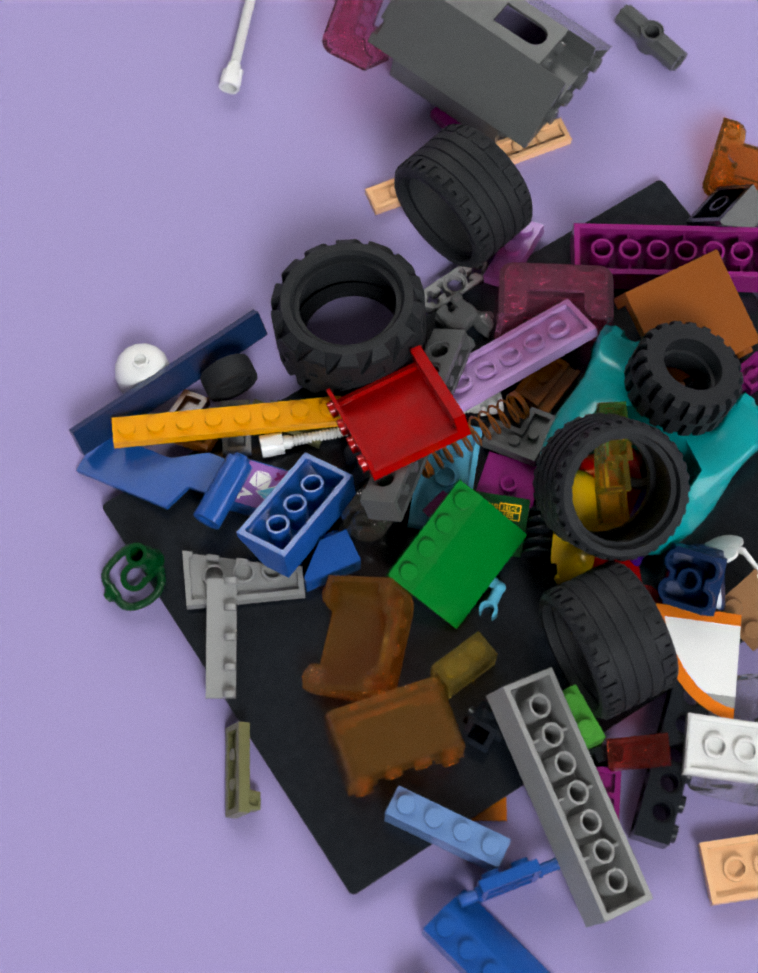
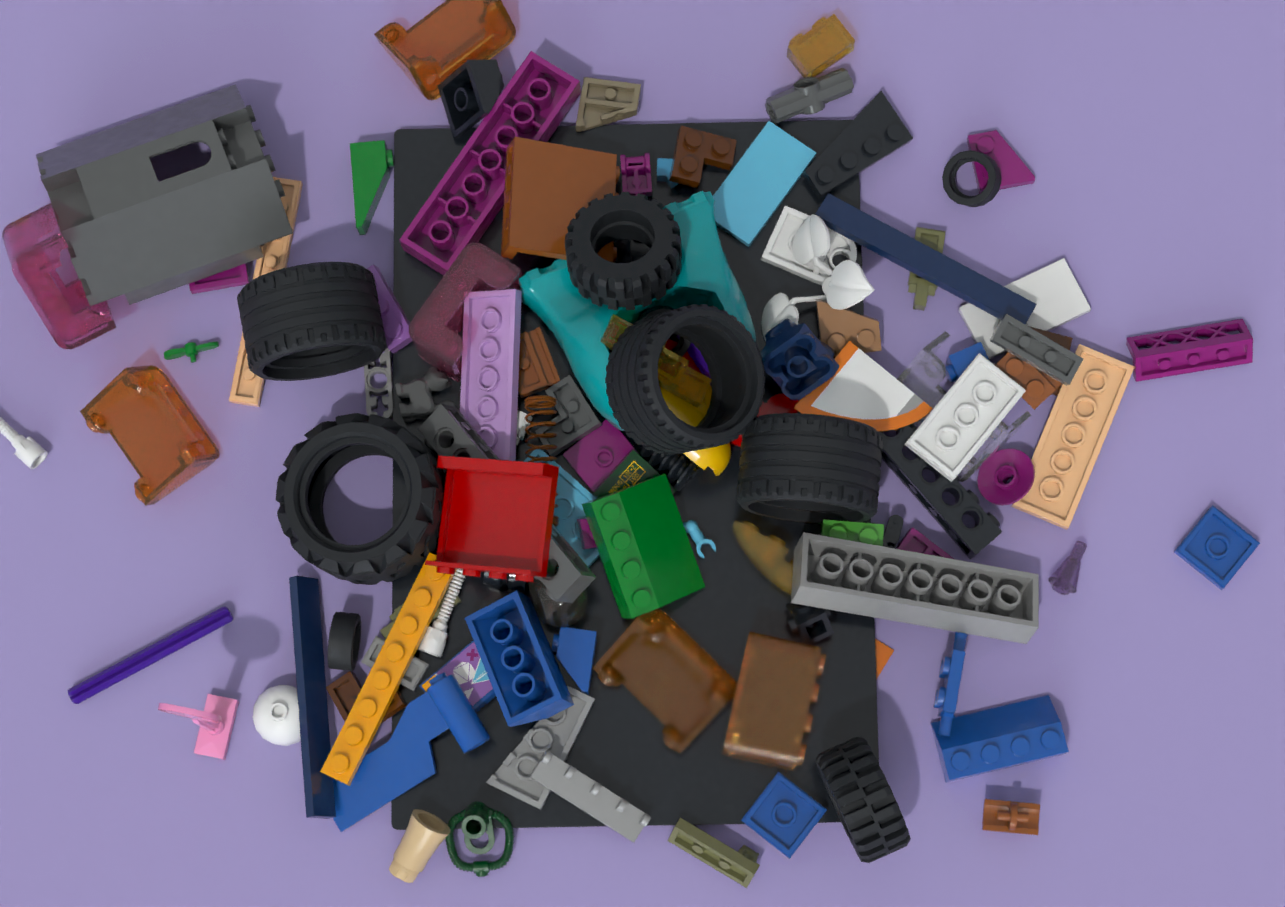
camera: 50 degrees left, 10 degrees up
(99, 530) = (418, 844): none -> tan plant
(103, 328) = (214, 722): none -> bright pink piece
(130, 251) = (150, 655): none -> dark purple axle
(305, 809) = (784, 815): none -> blue tile
(307, 149) = (152, 430): none -> clear orange windscreen
(355, 856) = (863, 799): none -> black tyre
(385, 141) = (191, 350): none -> green piece
(446, 829) = (879, 705): medium blue brick -> none
(464, 664) = (743, 601): clear yellow brick -> none
(516, 658) = (766, 554): none -> clear yellow slope
(607, 184) = (370, 176): none -> green slope
(639, 752) = (913, 505): clear red plate -> none
(659, 44) = (227, 45): dark grey piece -> none
(669, 929) = (1066, 576): none -> clear purple cone
(719, 822) = (1001, 467): none -> magenta dish

